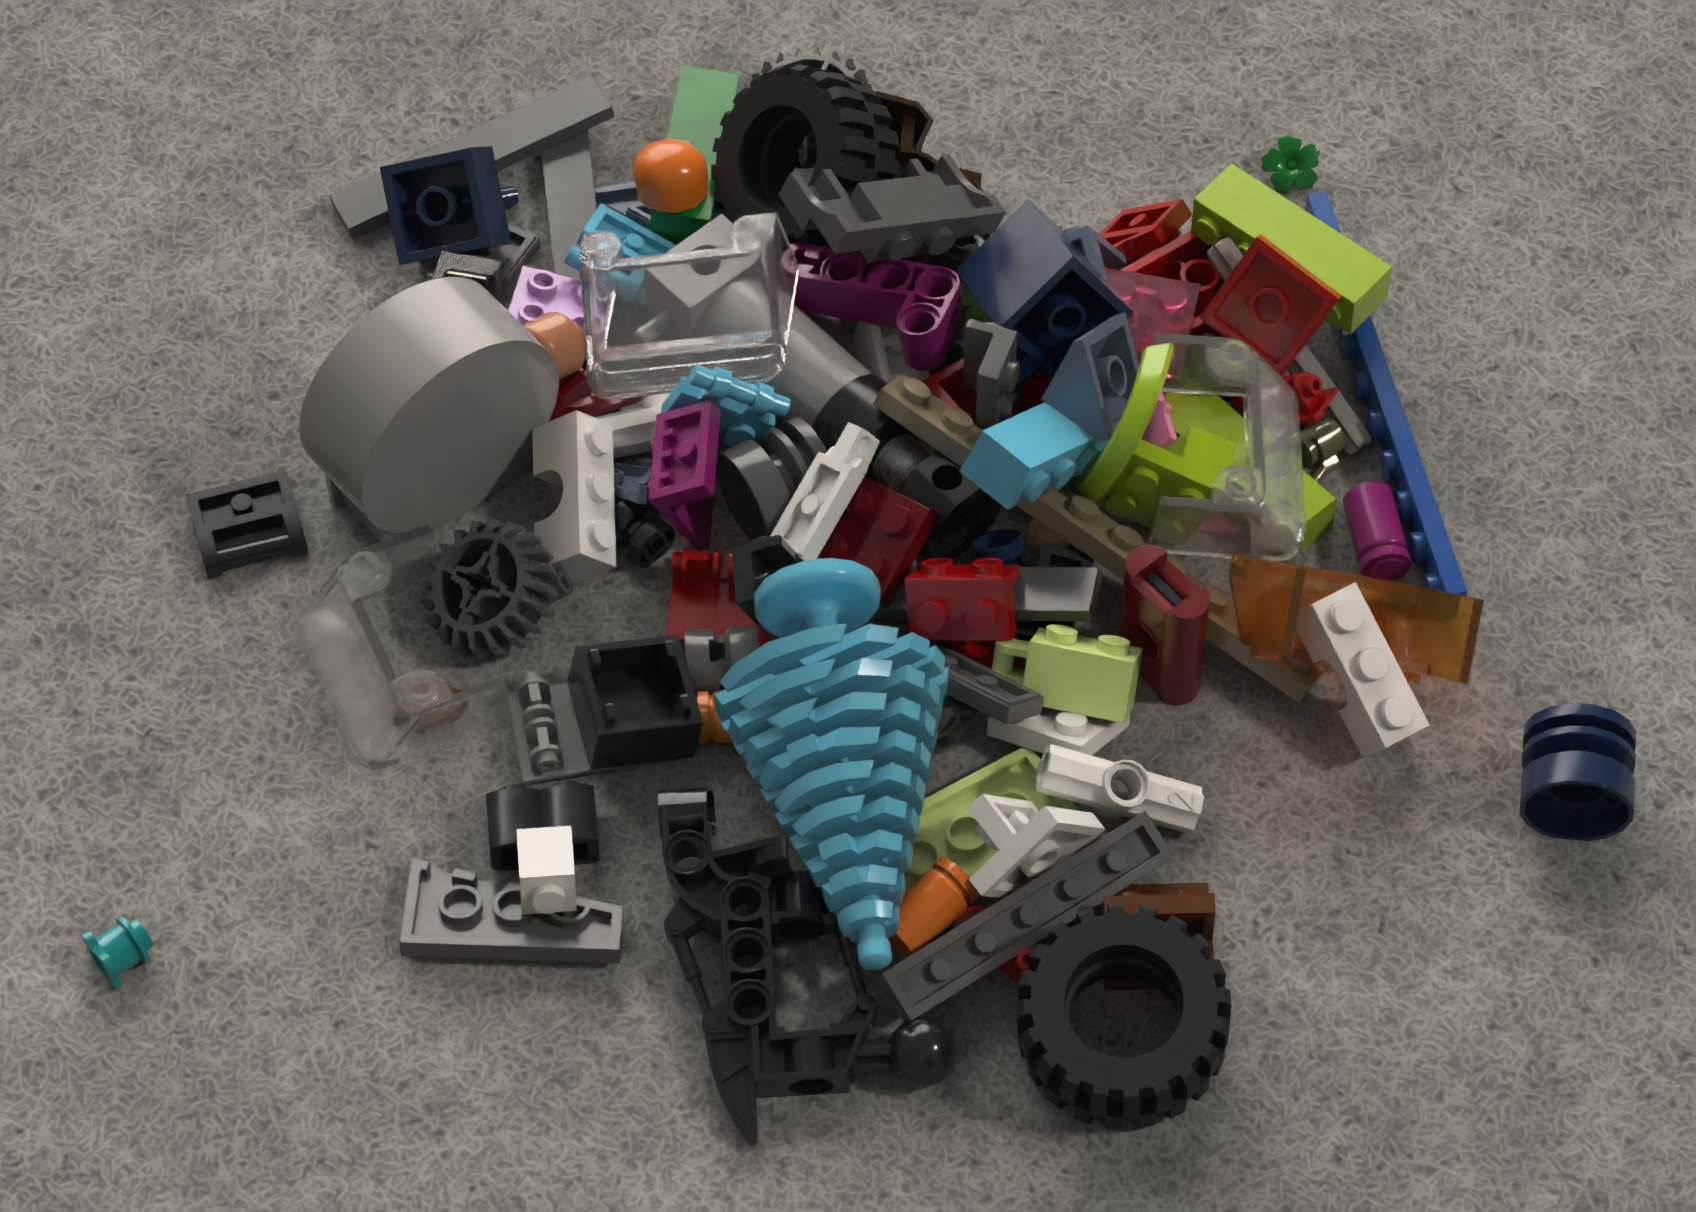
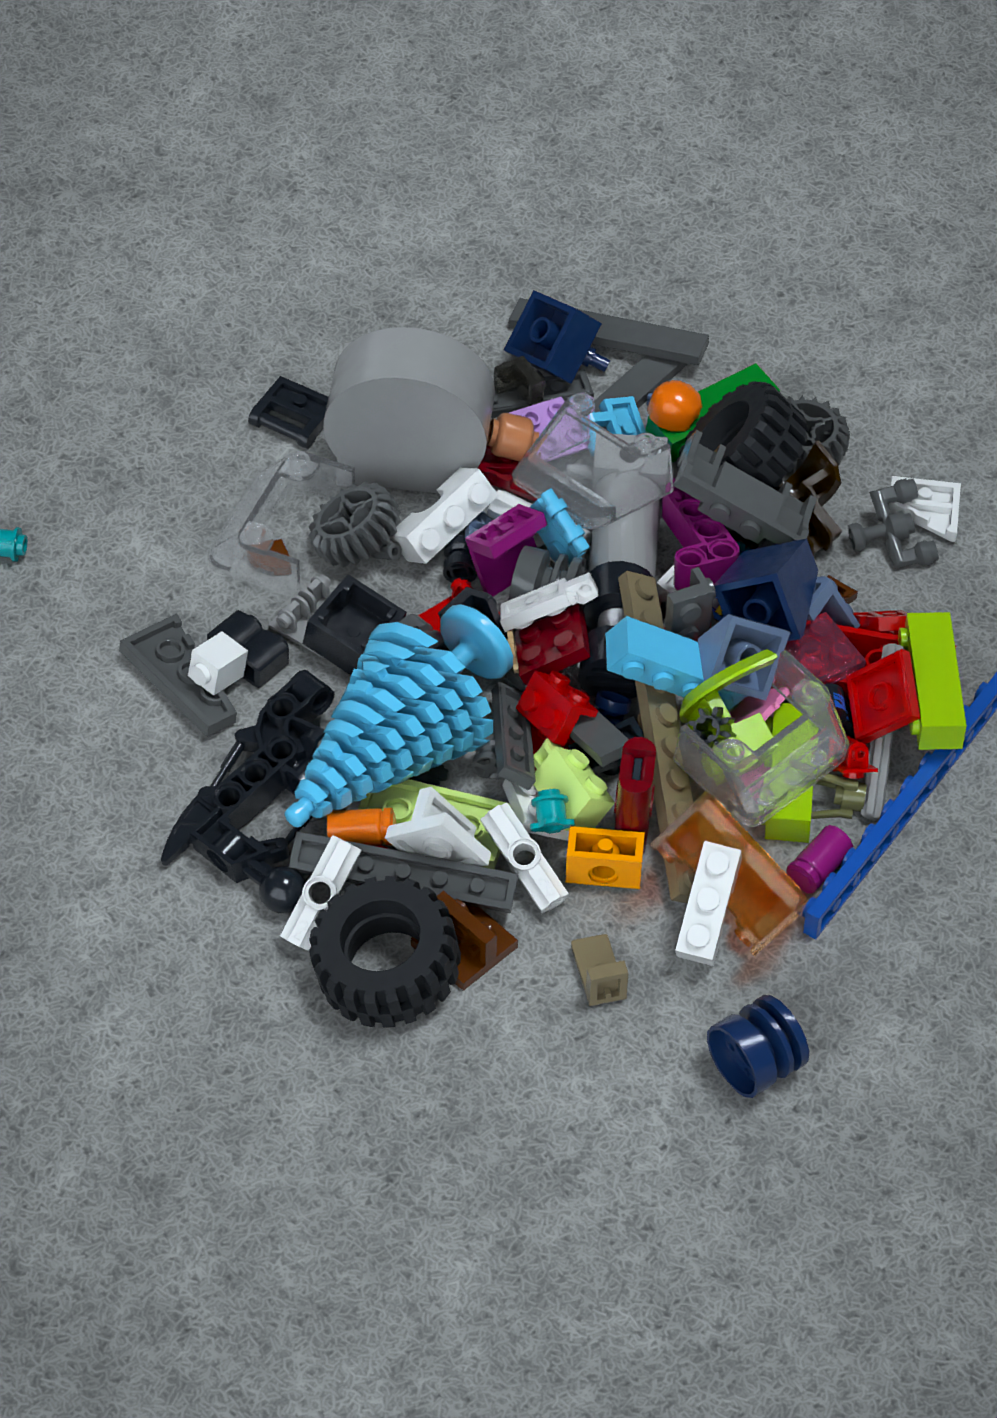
camera: 45 degrees right, 5 degrees down
(990, 1051) = (331, 869): none -> white piece
(1013, 79) = (935, 508): none -> white wing
(1017, 128) = (894, 527): none -> dark grey piece
(1101, 714) = (550, 812): none -> teal brick
(1166, 474) = (722, 724): none -> gear
(1191, 716) = (604, 857): none -> light orange brick
(1322, 841) = (600, 974): none -> dark tan bracket

